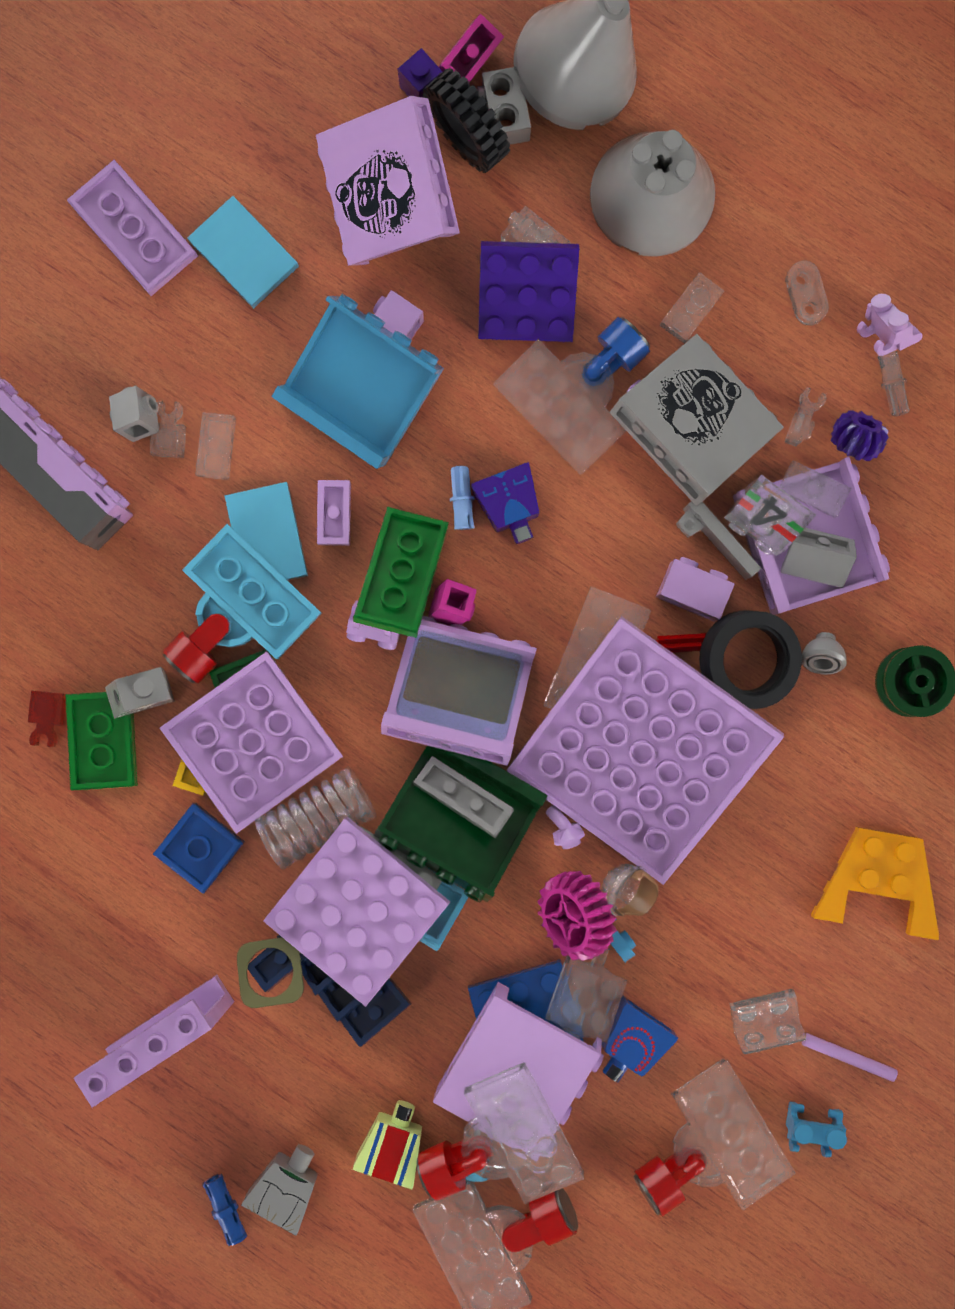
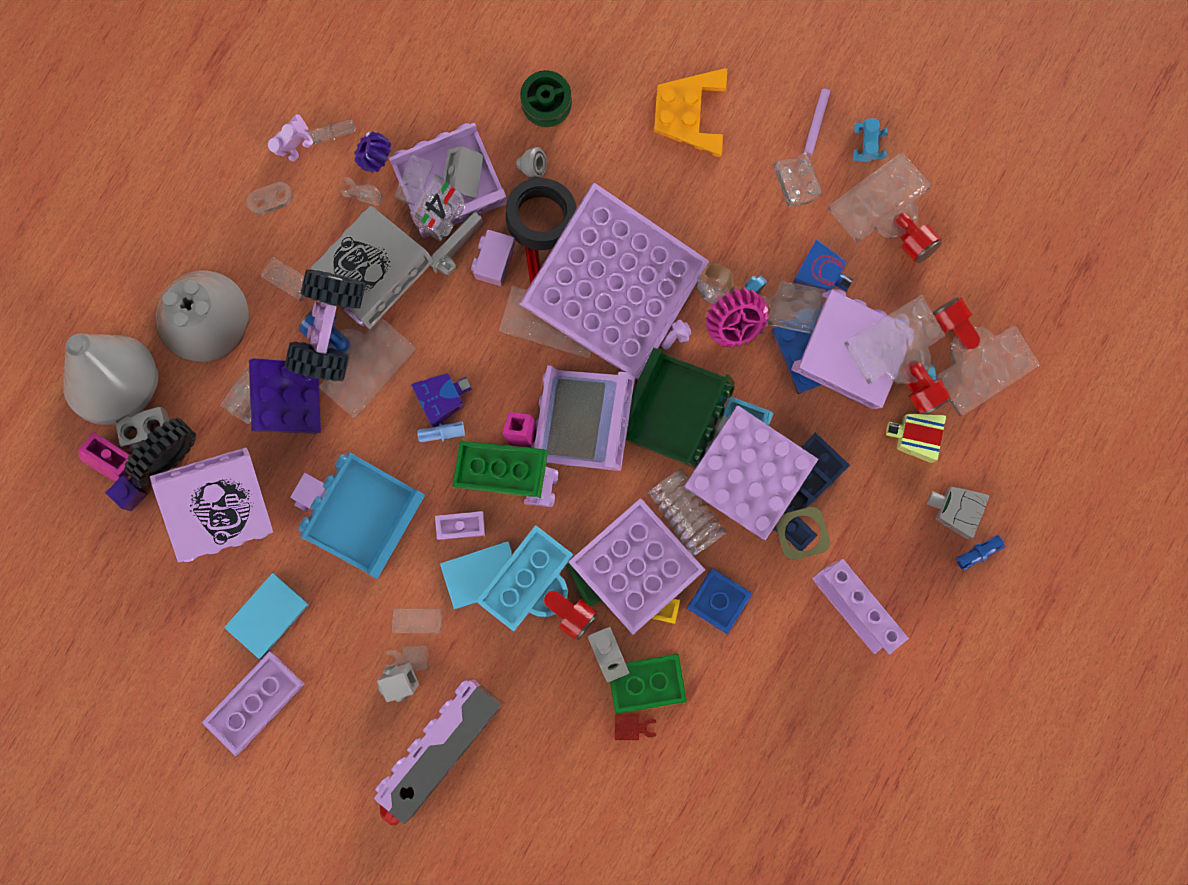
camera: 85 degrees left, 5 degrees down
(463, 797) = (660, 406): light grey hinge -> none
(572, 332) = (315, 358): none -> black plate

